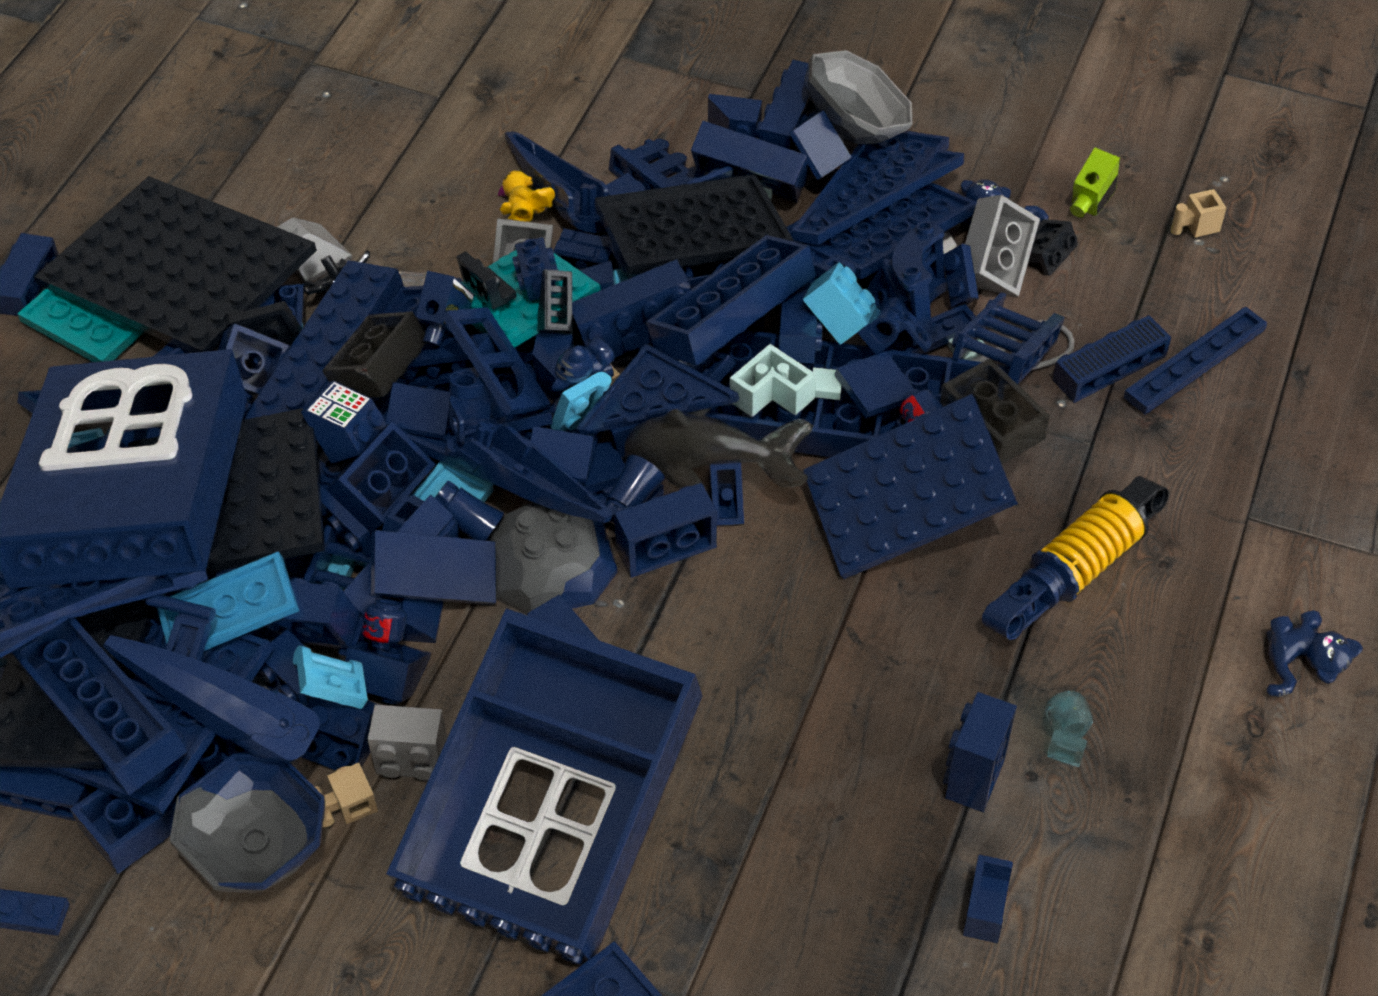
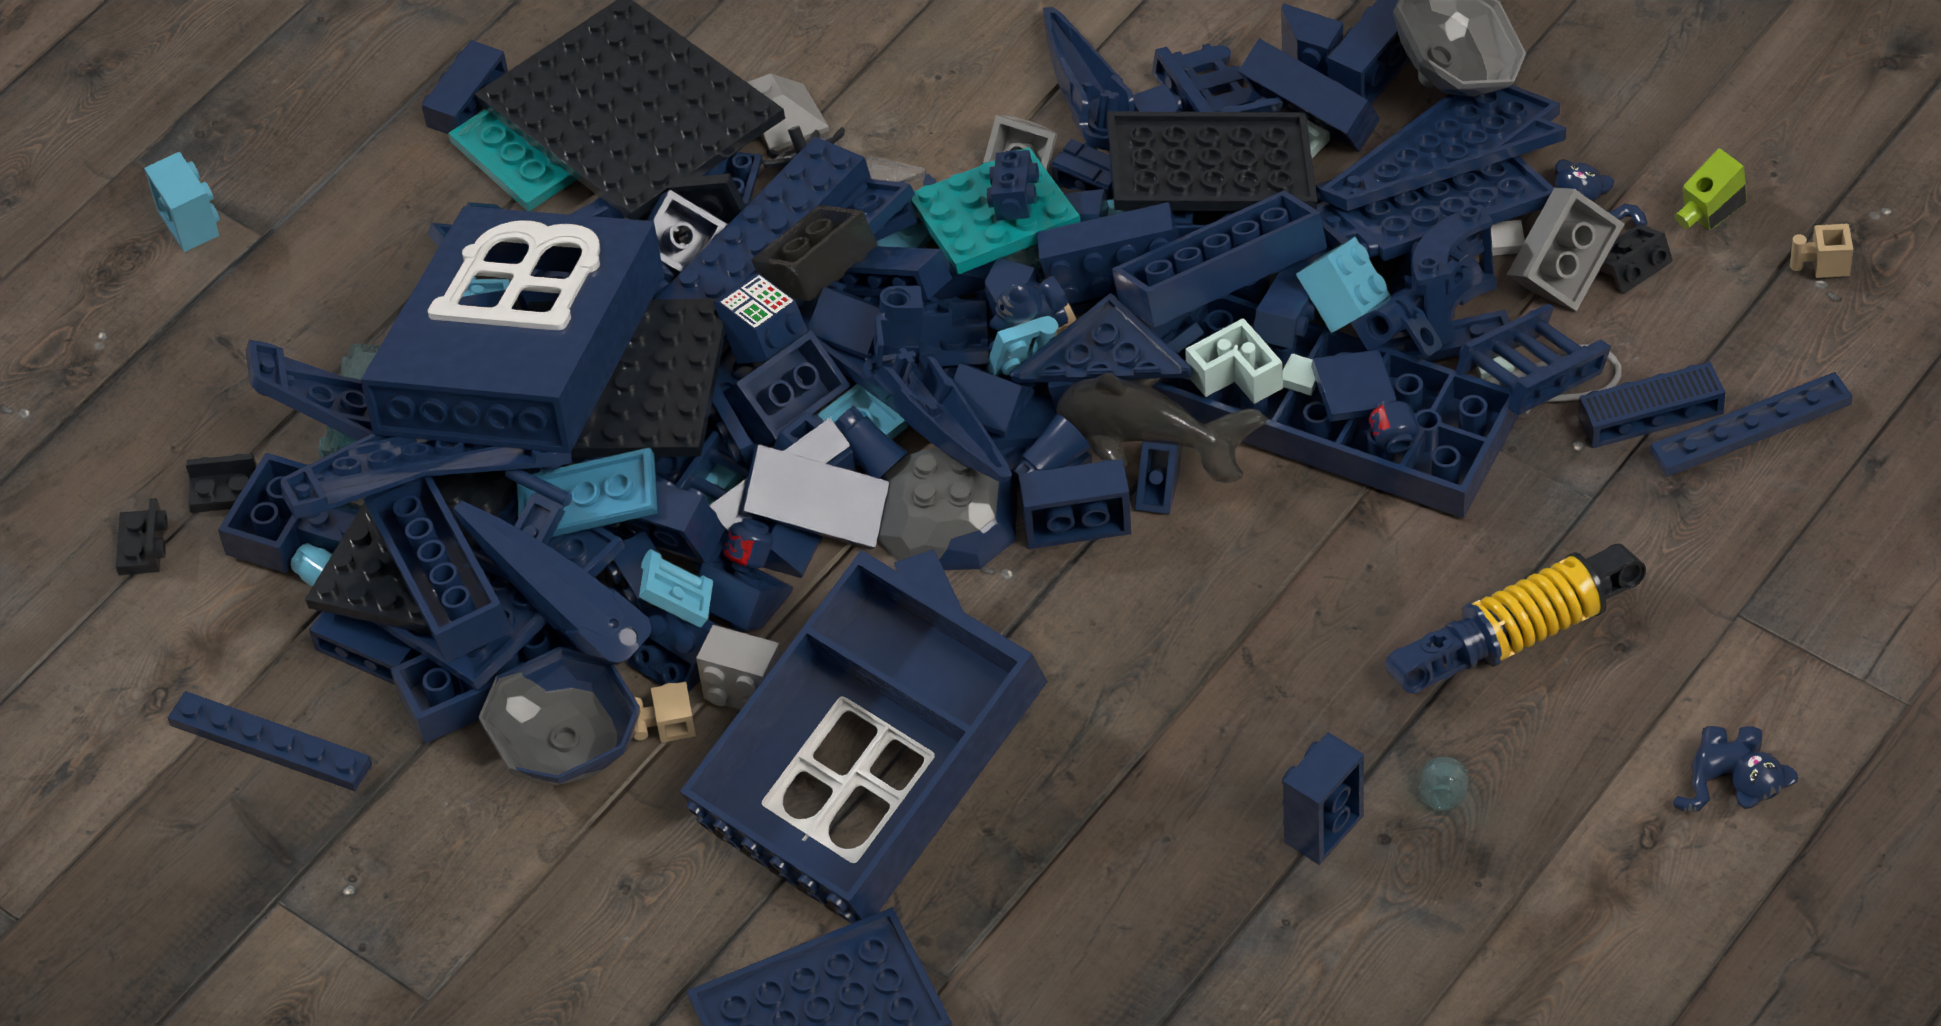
camera: 20 degrees right, 0 degrees up
(440, 295) = (898, 211): dark blue torso -> none
(484, 281) = (953, 190): black bracket -> none
(522, 200) = (1037, 95): yellow animal -> none
(529, 395) = (969, 325): dark blue window -> none
(565, 302) = (1007, 236): black slope -> none
(820, 144) = (1394, 88): slope -> none
(909, 486) = (1350, 506): dark blue plate -> none
(960, 276) = (1507, 276): dark blue plate -> none
(988, 899) = (1285, 946): dark blue panel -> none
(1008, 411) = (1471, 440): clear smoke brick -> none
(1067, 748) = (1428, 817): clear light blue tile -> none

